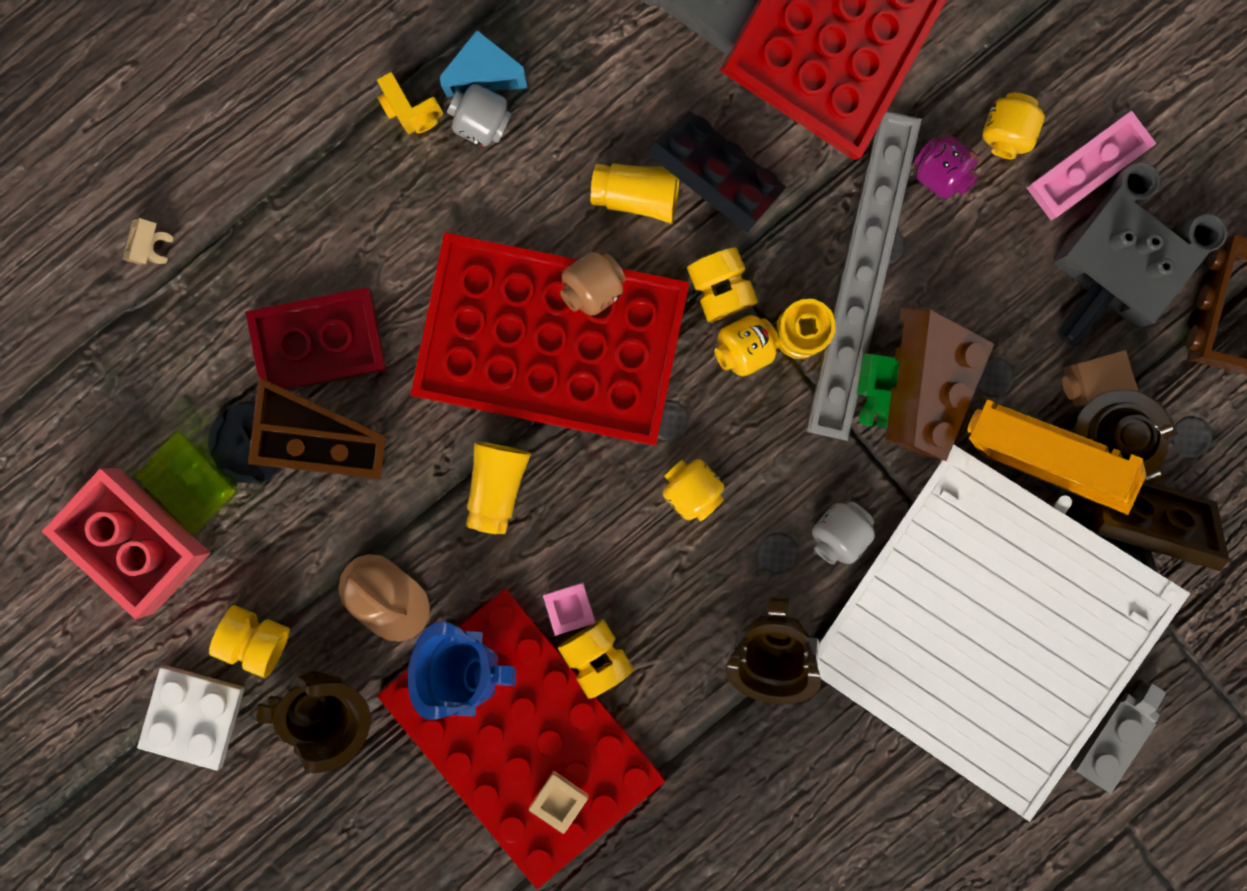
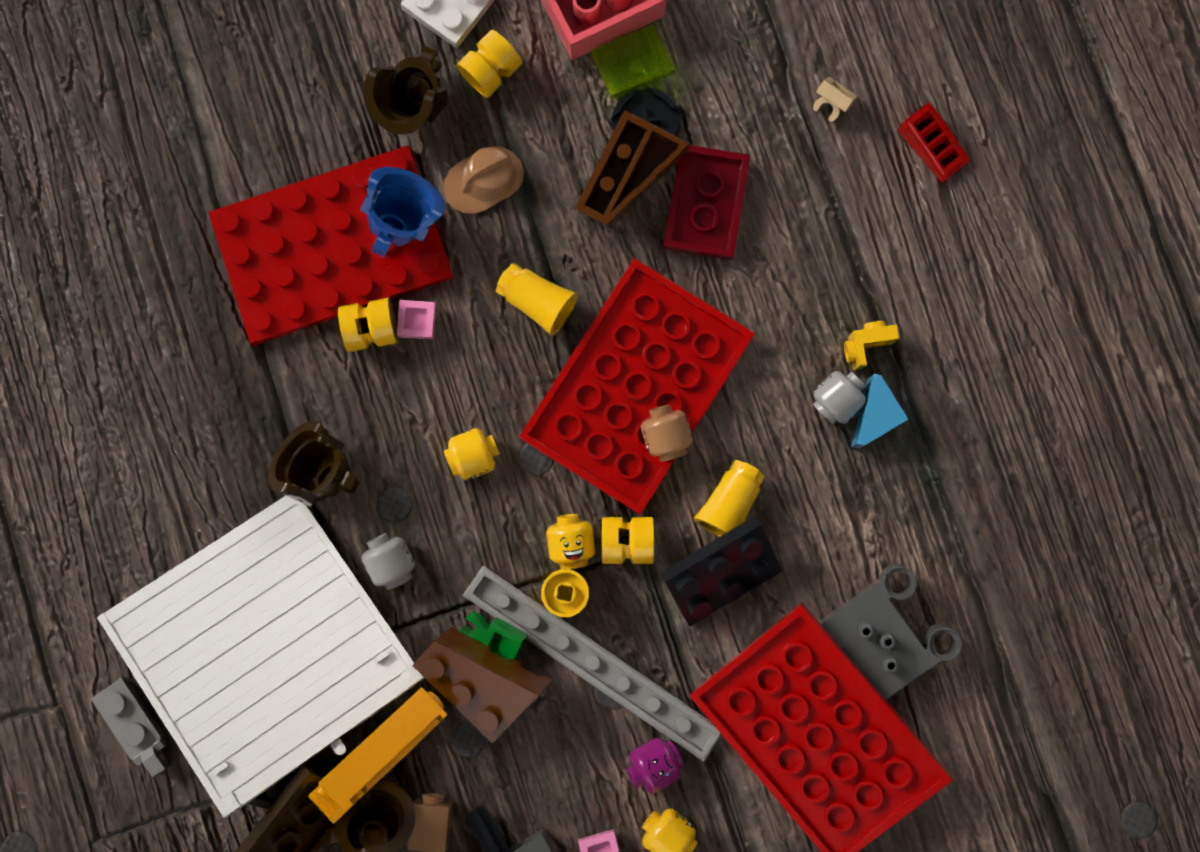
camera: 115 degrees right, 5 degrees down
(134, 118) = (937, 125): none -> red slope
(558, 802) = (267, 252): tan plate -> none

